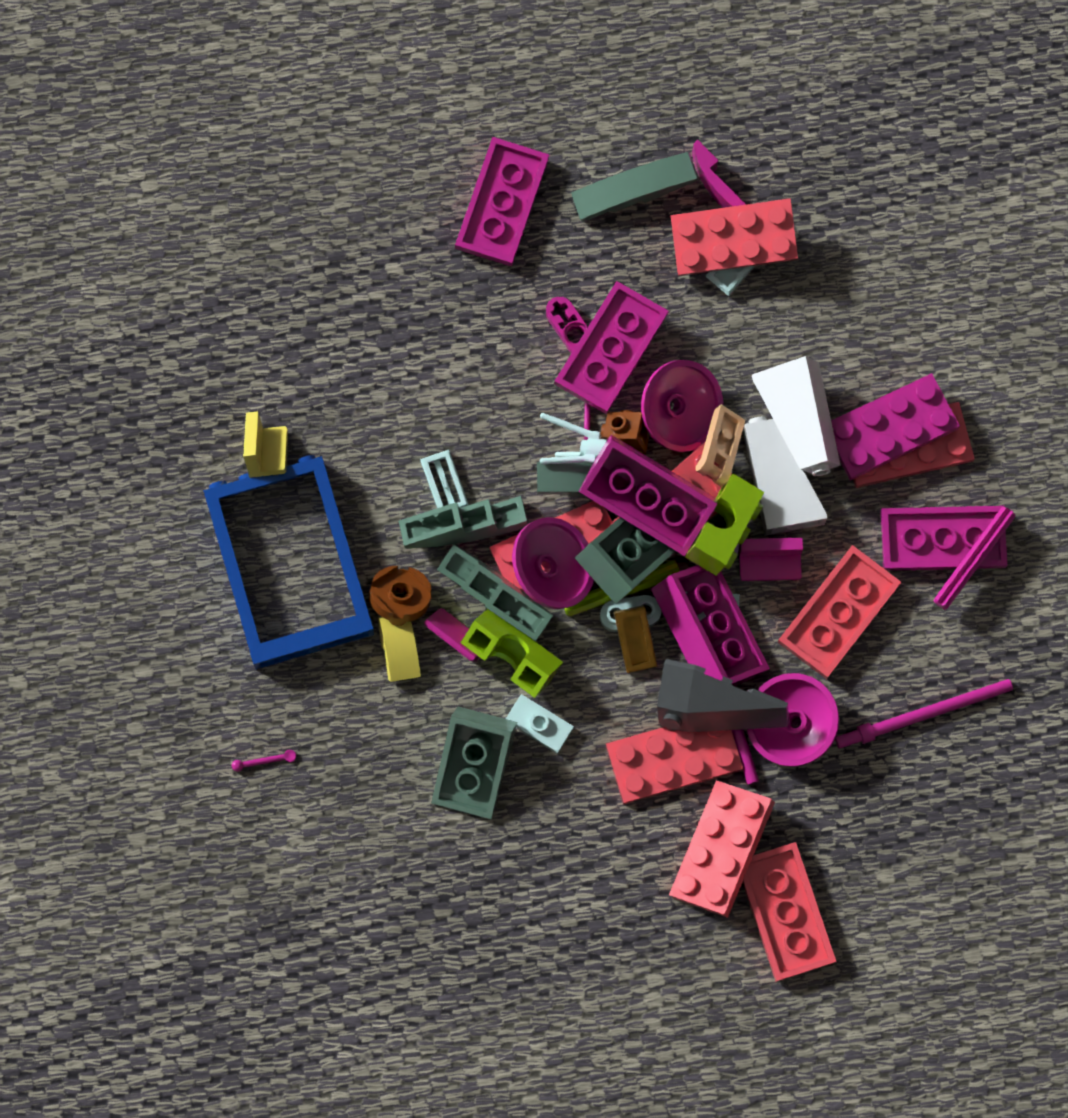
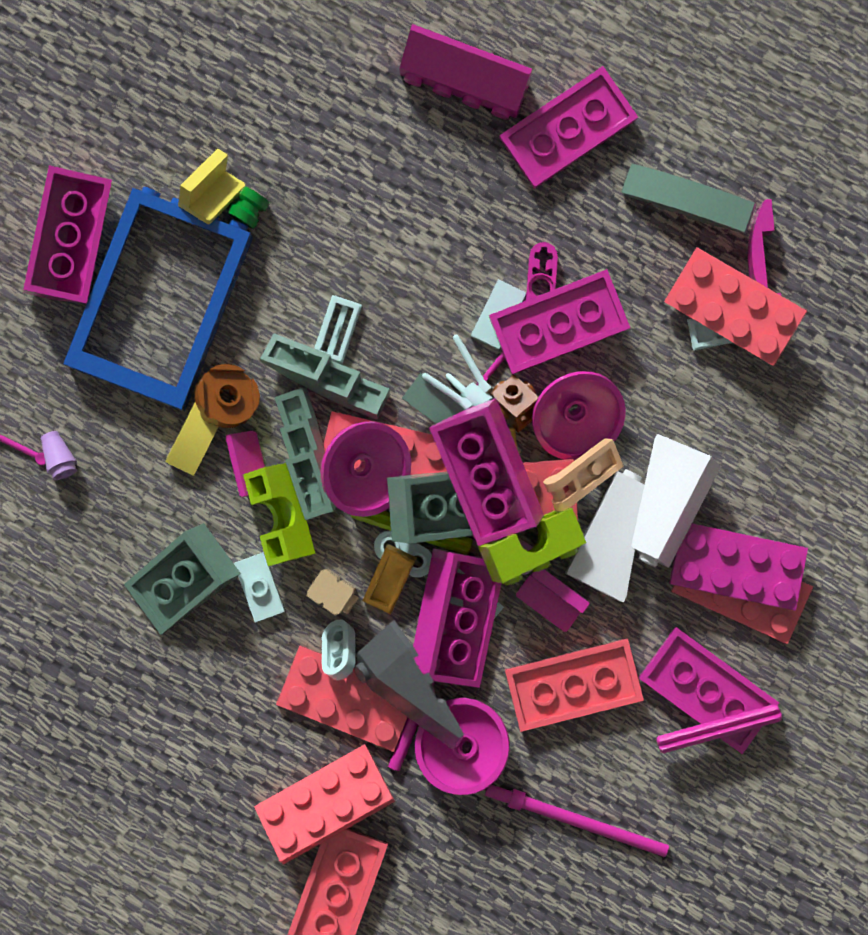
camera: 45 degrees right, 10 degrees up
(179, 566) = (67, 235): none -> dark pink slope
(302, 742) = (58, 458): none -> lavender cone
(303, 440) = (247, 209): none -> green wheel
(392, 216) = (464, 72): none -> dark pink slope
(551, 365) = (500, 298): none -> light aqua tile
(601, 678) = (335, 594): none -> tan brick
(639, 720) = (338, 650): none -> light aqua plate

